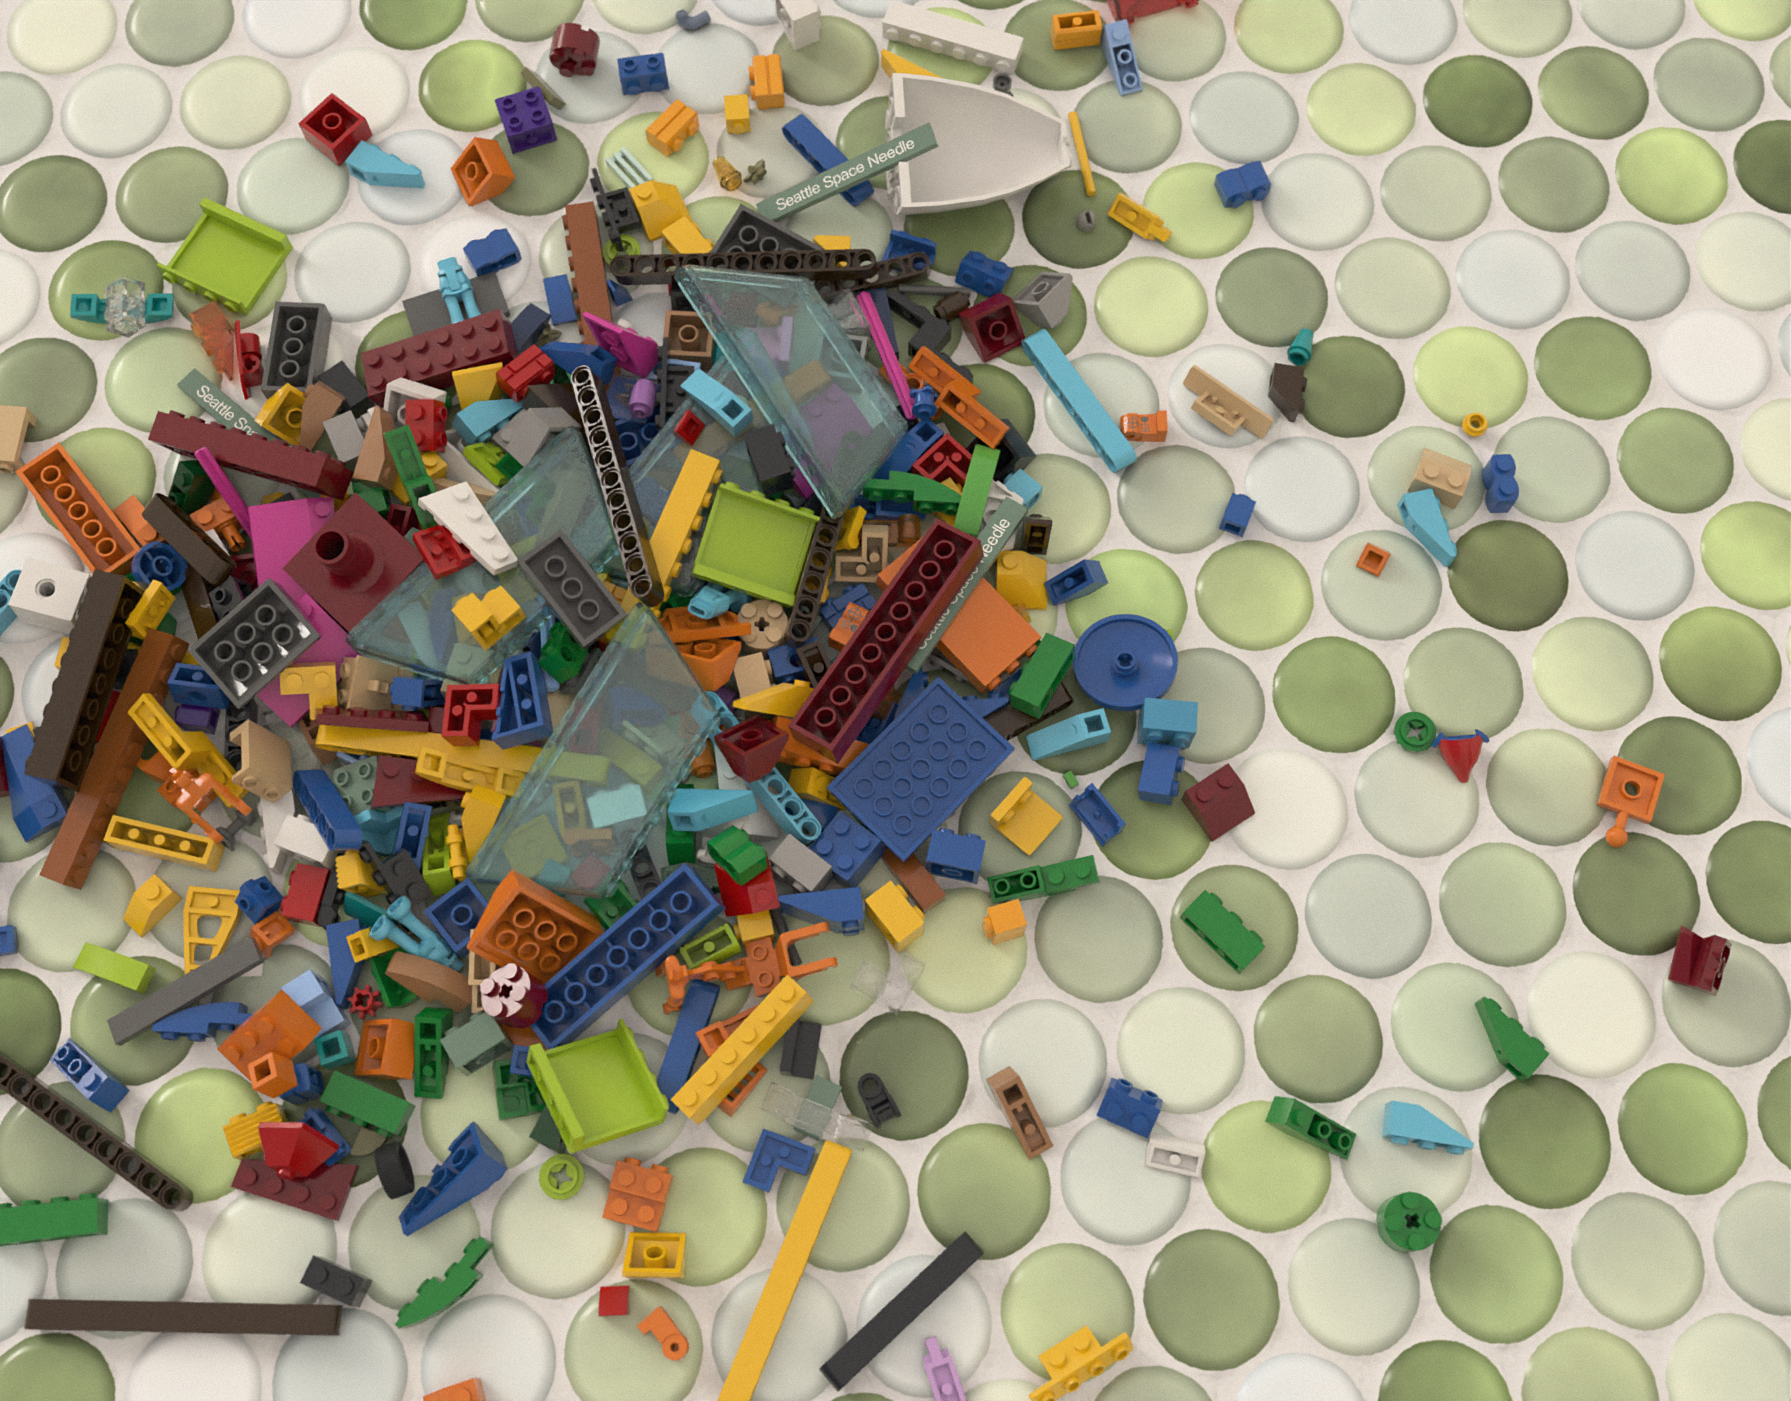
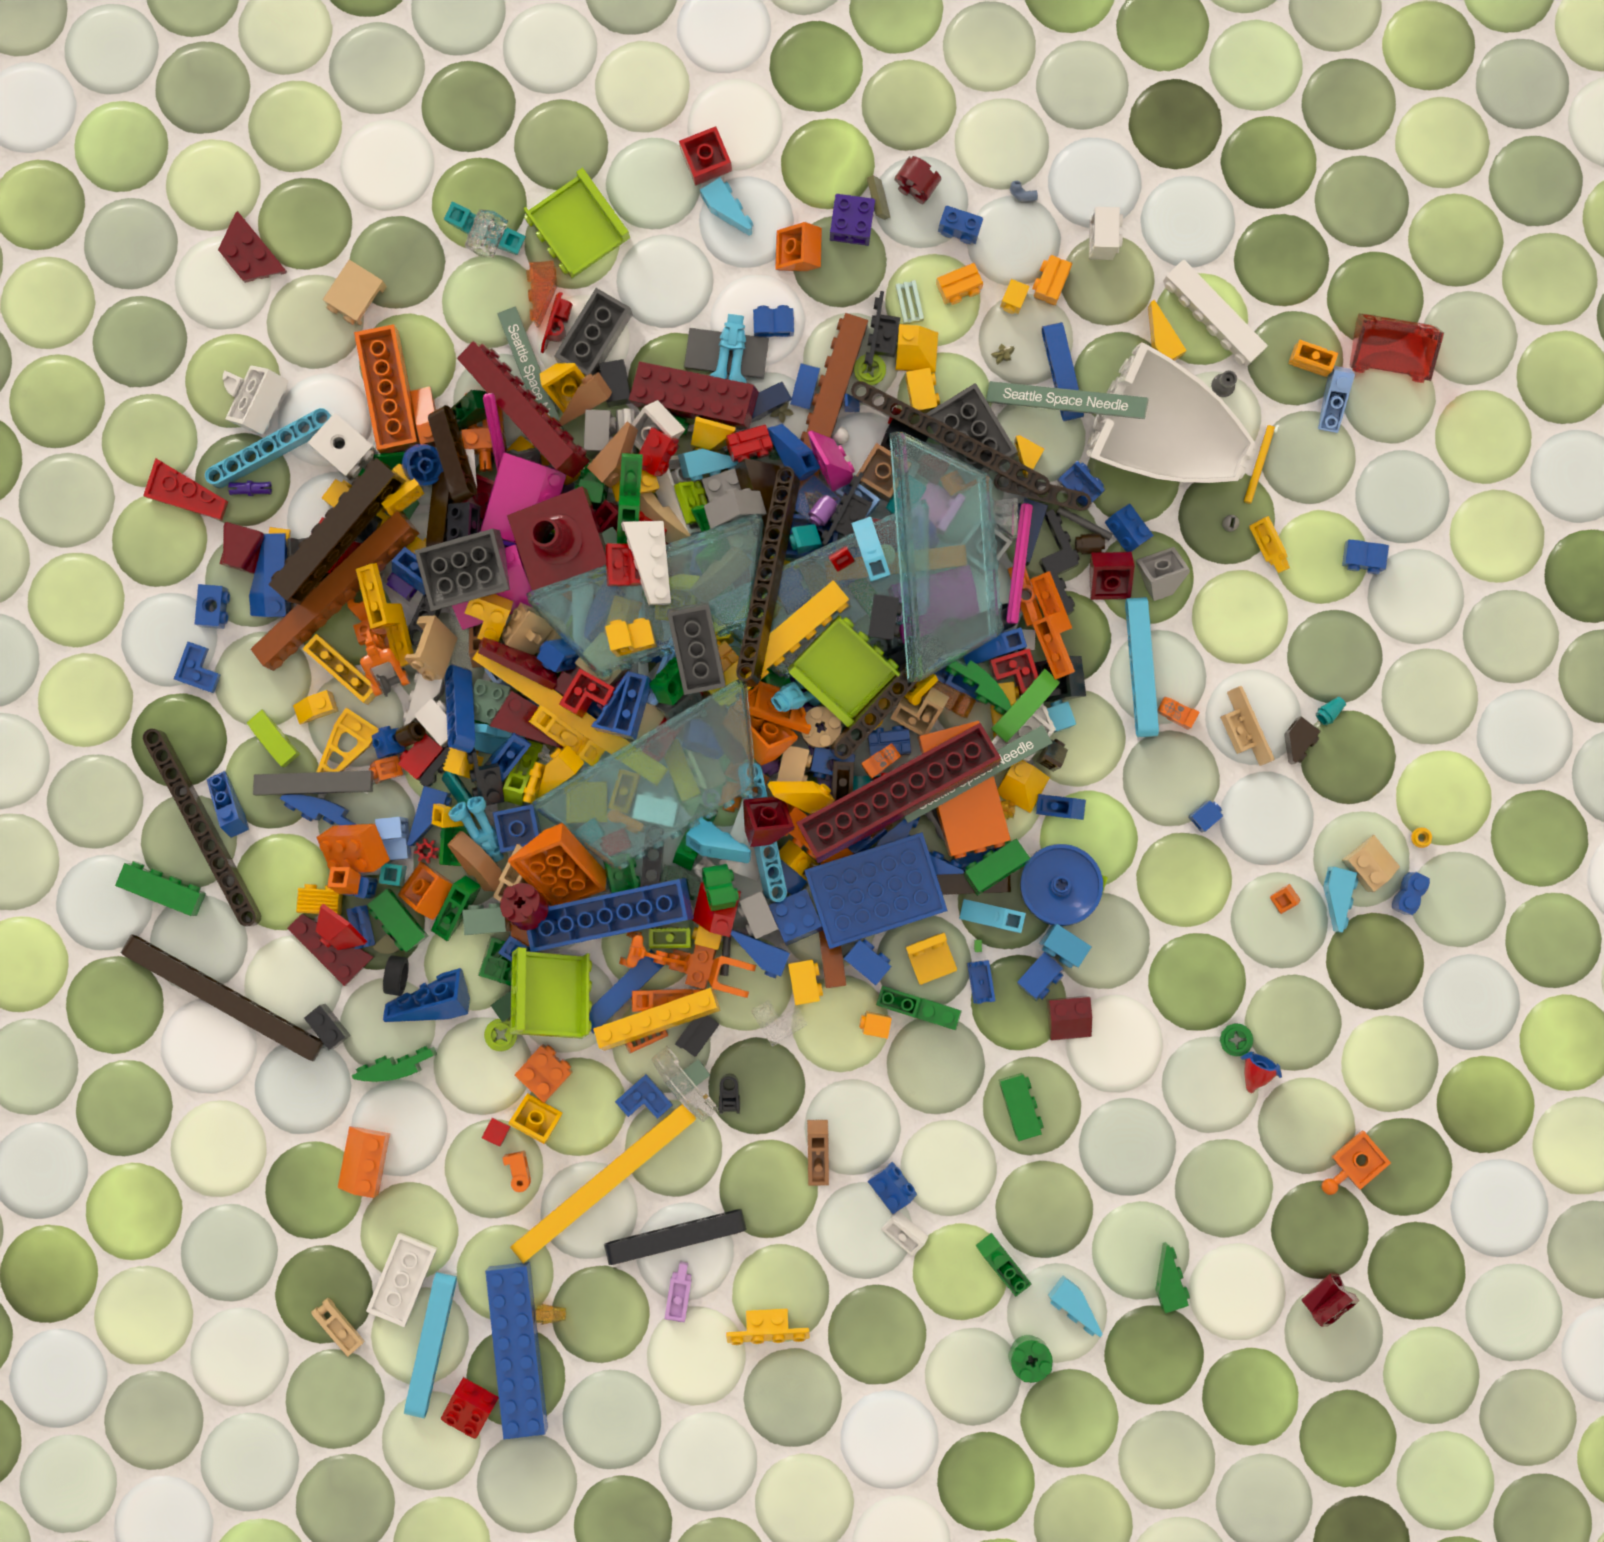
camera: 30 degrees right, 15 degrees up
(280, 870) = (410, 733): none -> dark brown brick
(636, 433) = (804, 539): none -> teal slope
(727, 174) = (980, 344): clear yellow cone -> none
(924, 402) = (1024, 619): blue brick -> none

